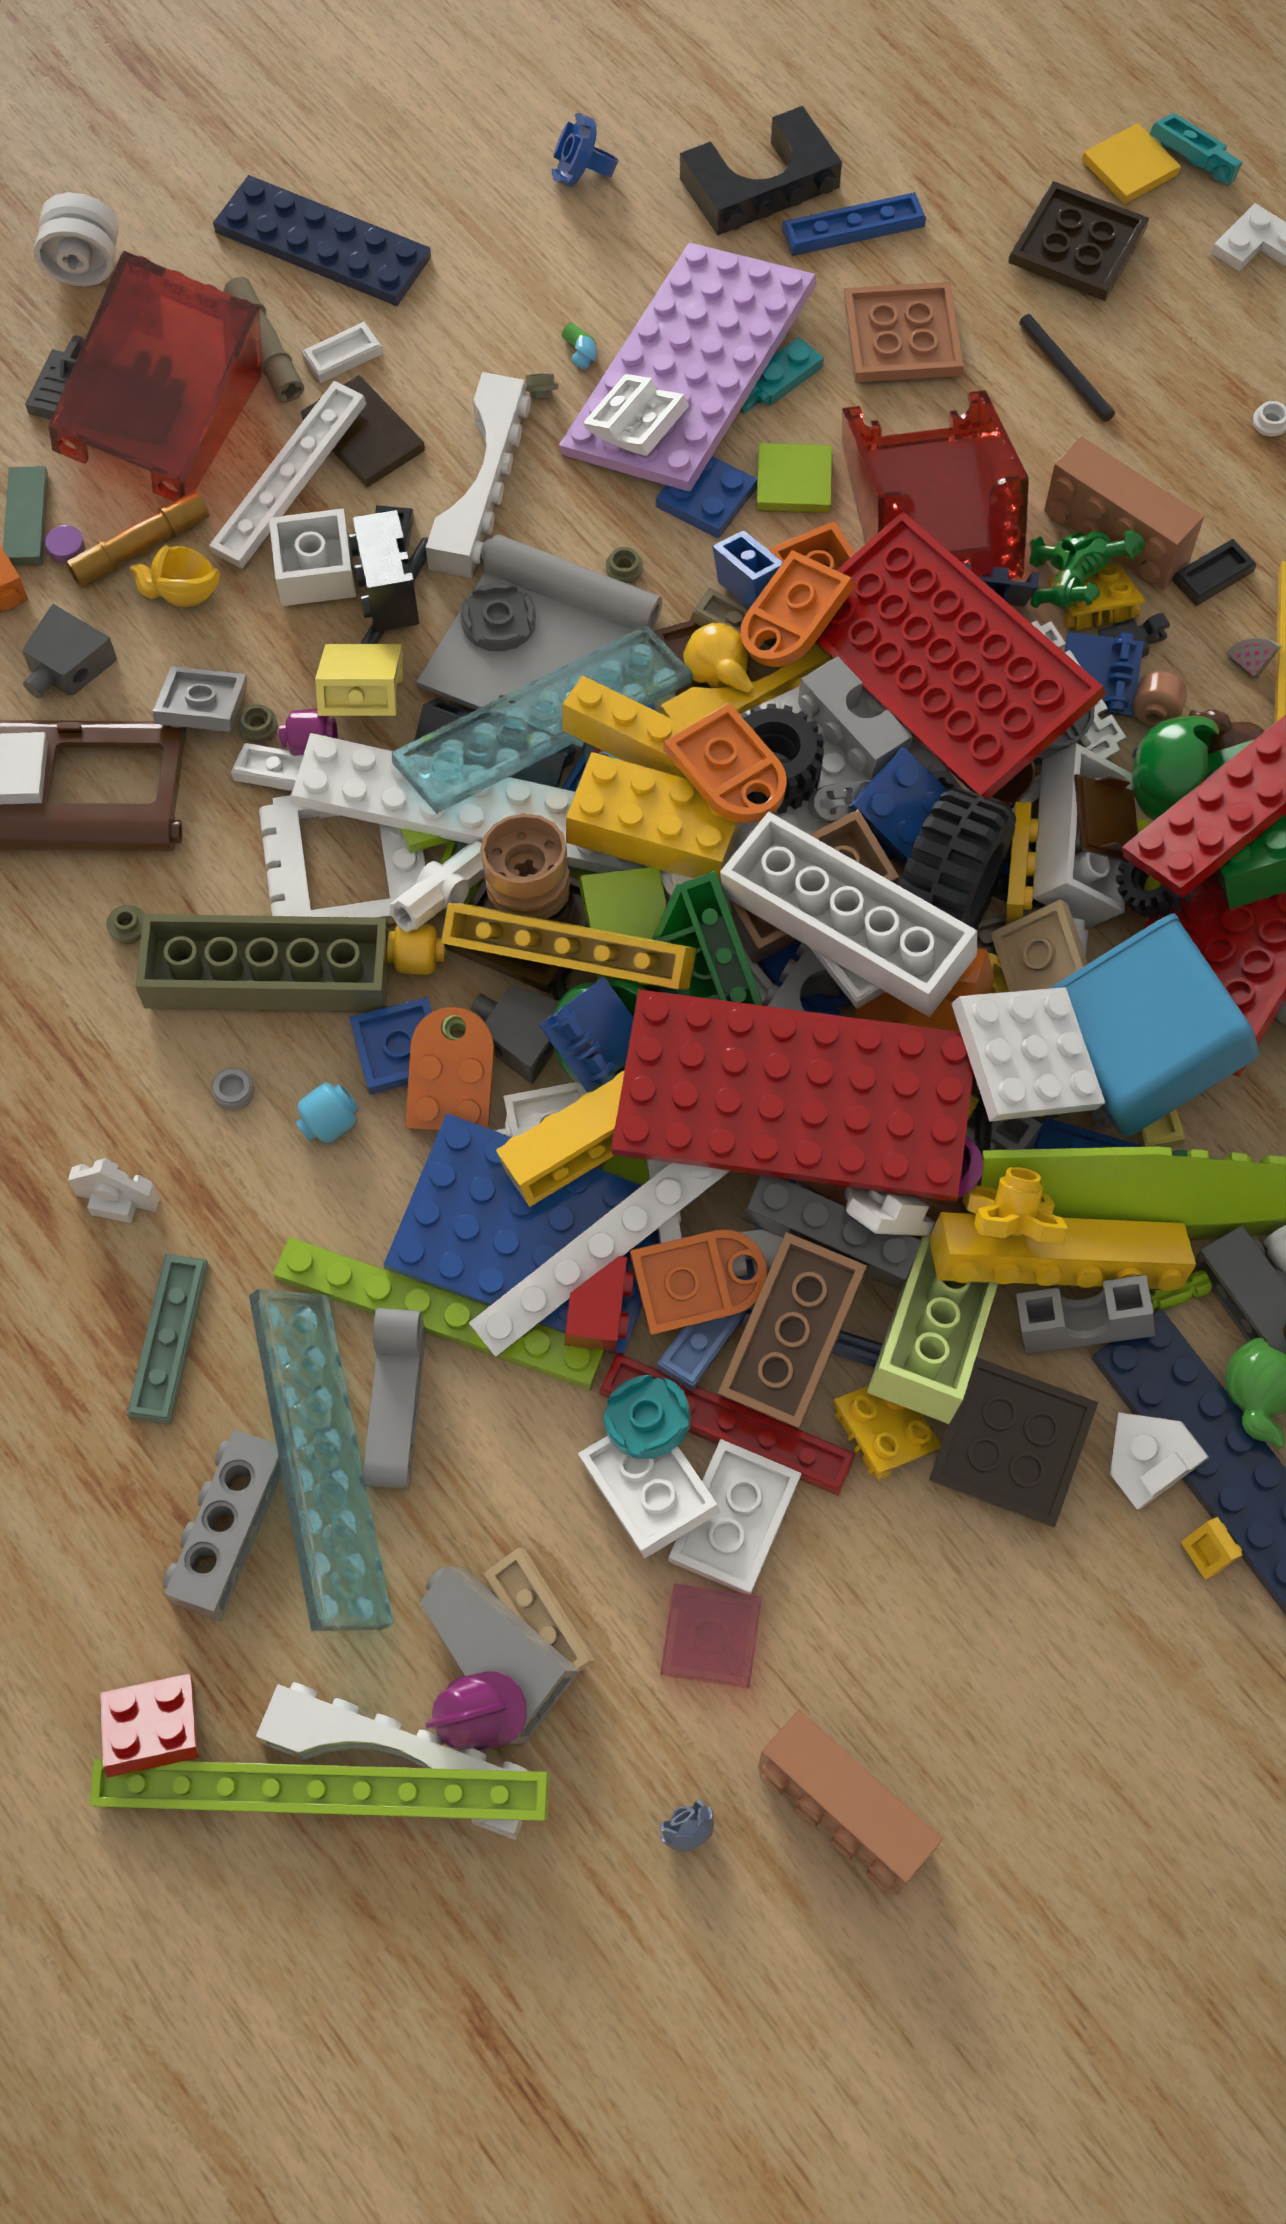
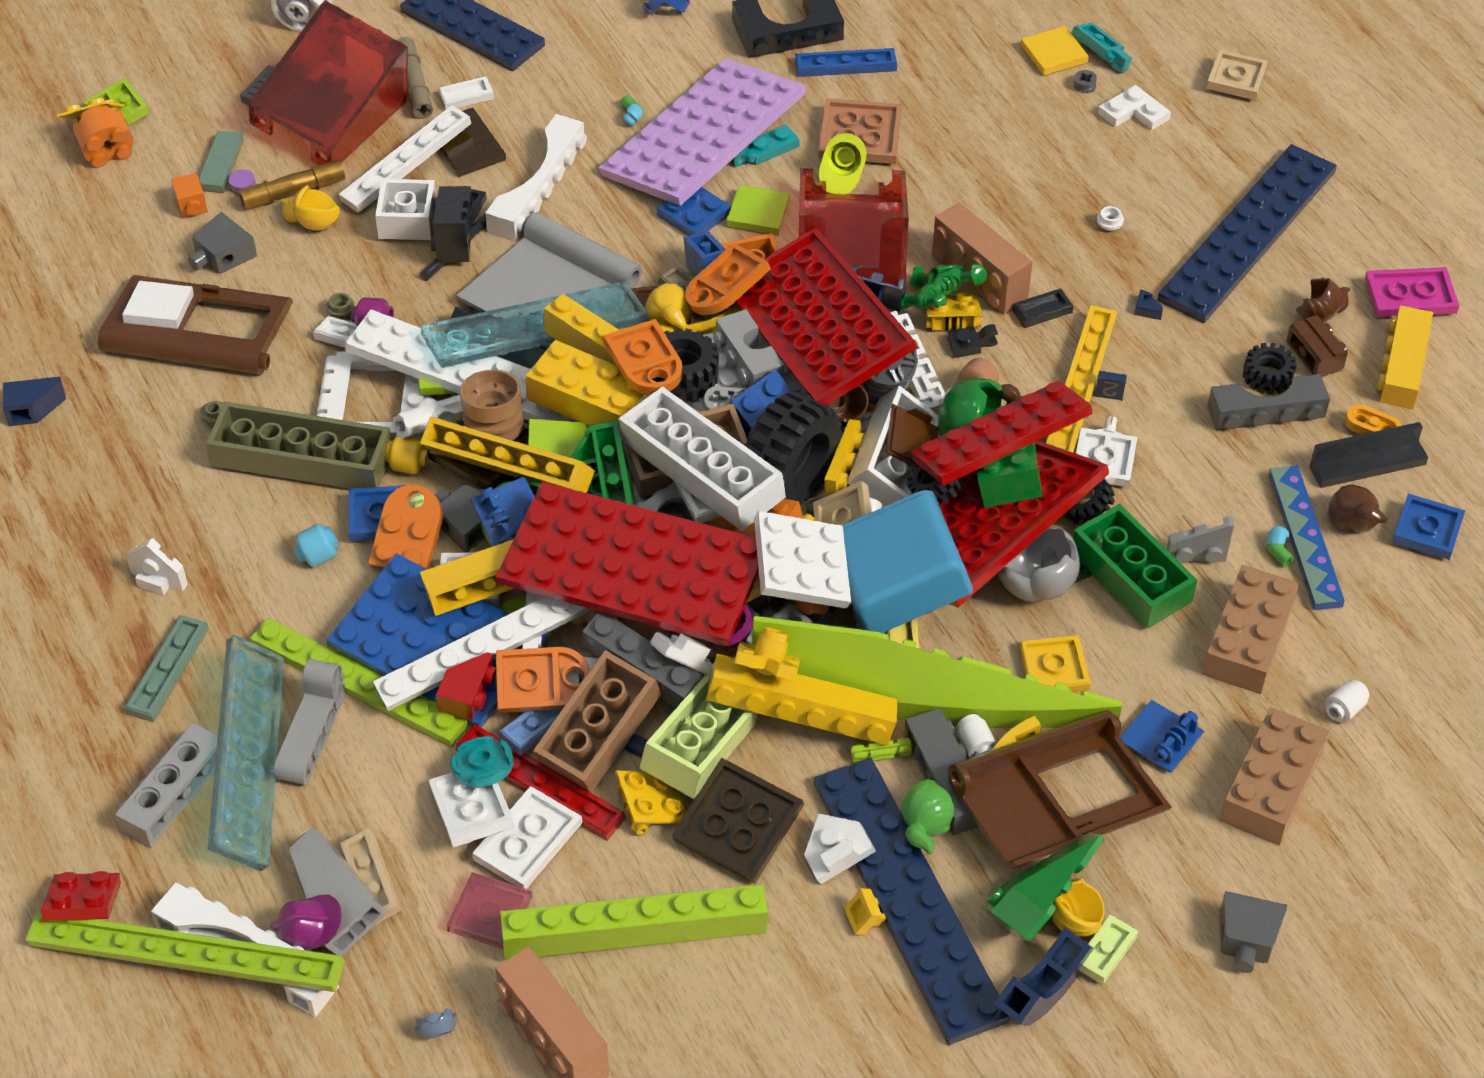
camera: 10 degrees right, 15 degrees down
(200, 699) = (304, 284): light grey plate -> none
(232, 1089) = (257, 524): light grey tile -> none
(359, 679) = (415, 284): light yellow panel -> none
(498, 617) = (525, 264): dark grey tile -> none
(540, 385) = (596, 129): olive plate -> none
(624, 558) = (623, 245): olive plate -> none
(636, 414) = (654, 152): white slope -> none
(897, 391) = (842, 163): none -> neon yellow piece
(914, 1624) = (635, 921): none -> lime brick
(1067, 368) = (972, 169): black bar -> none
(1078, 240) = (1002, 92): dark brown plate -> none
(1111, 663) = (946, 352): blue hinge -> none
(1115, 1314) = (789, 751): light grey arch -> none
(1184, 214) = (1085, 81): none -> dark grey bush
(1254, 654) = (1055, 361): light grey tile -> none

